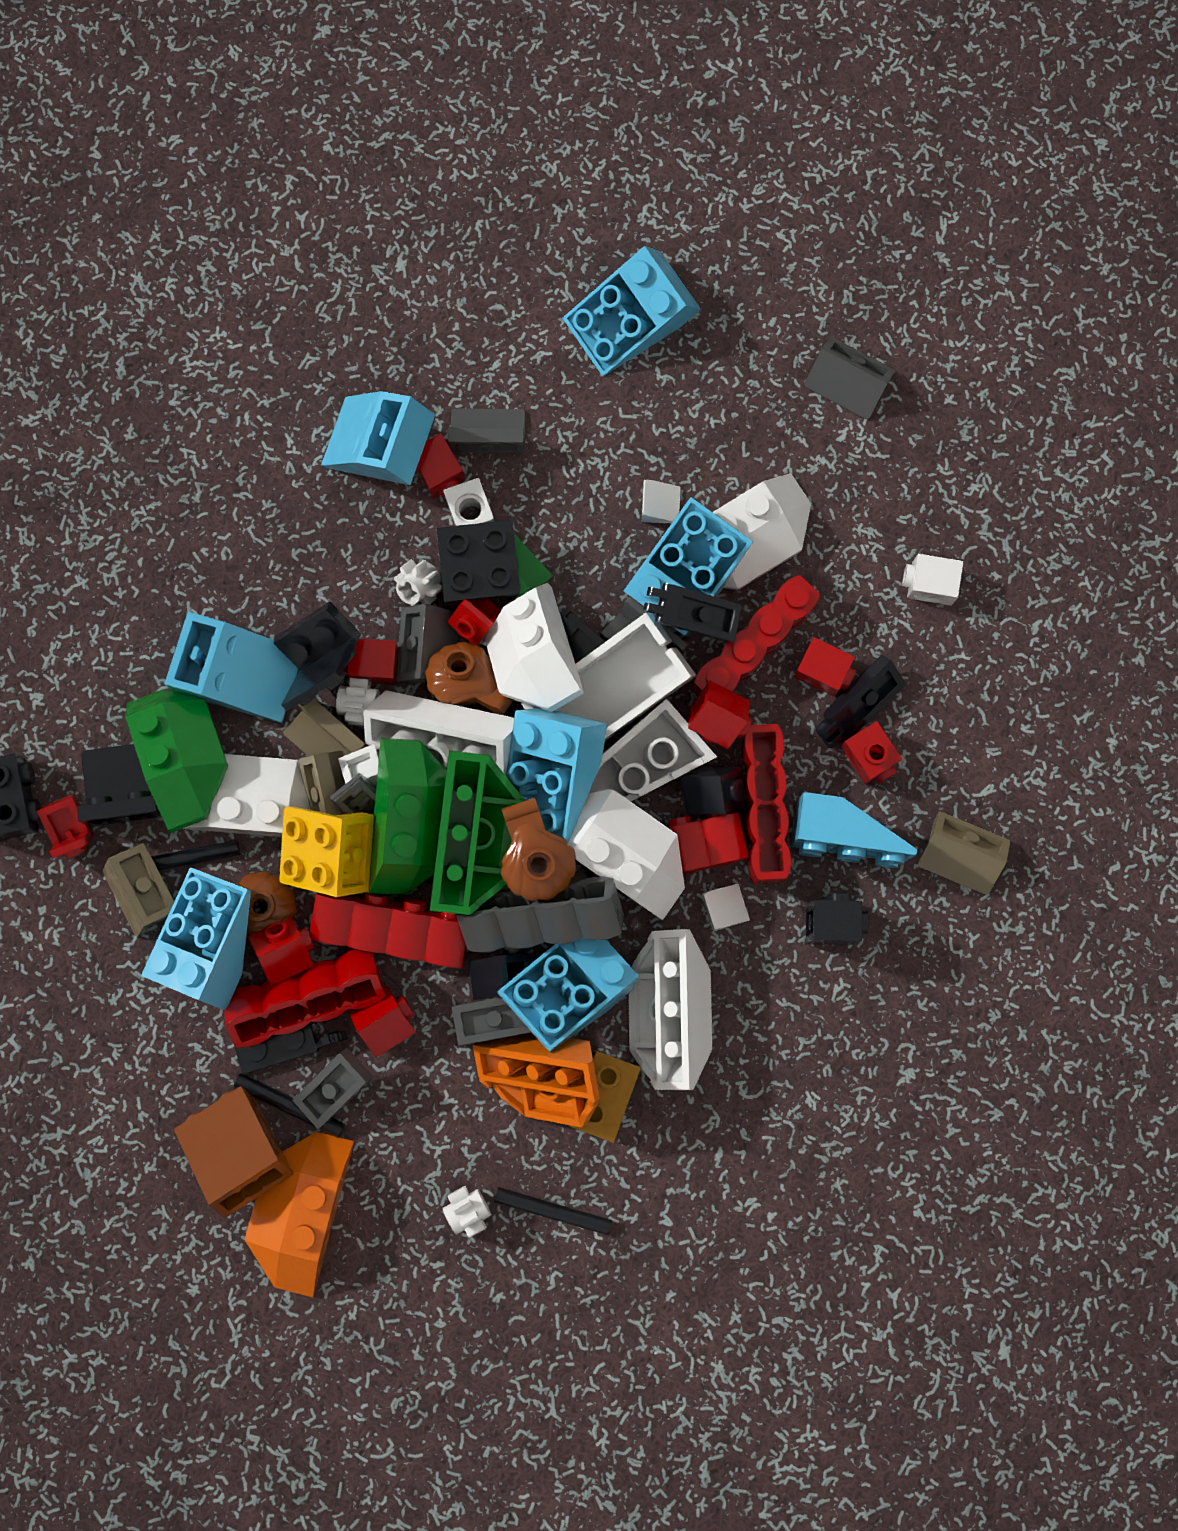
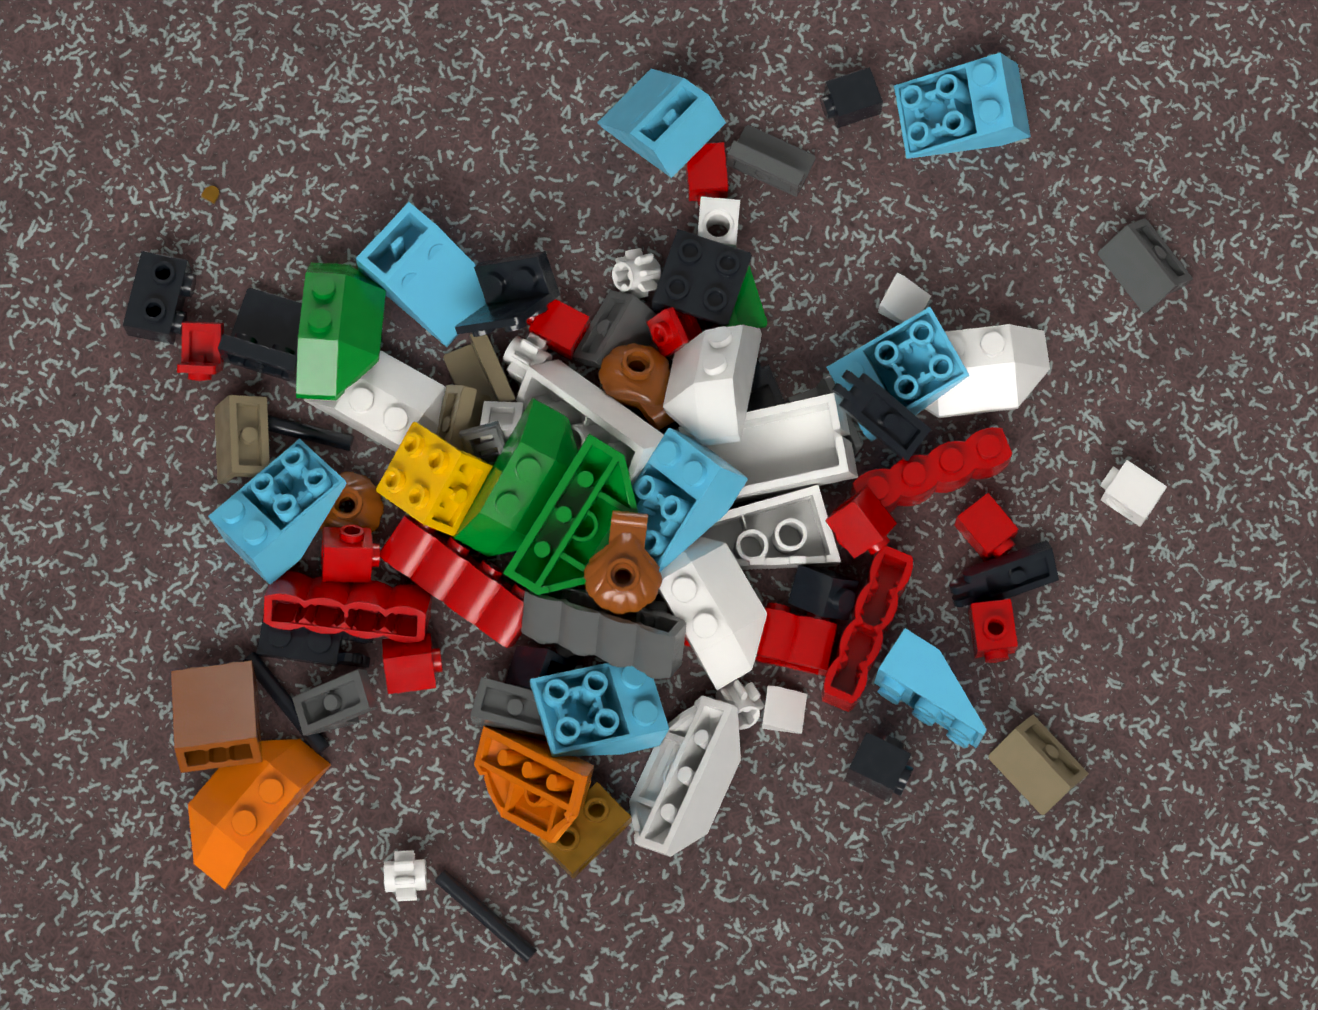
camera: 25 degrees right, 5 degrees down
(9, 682) = (210, 194): none -> pearl gold piece
(532, 344) = (851, 98): none -> black brick
(687, 916) = (745, 699): none -> white gear

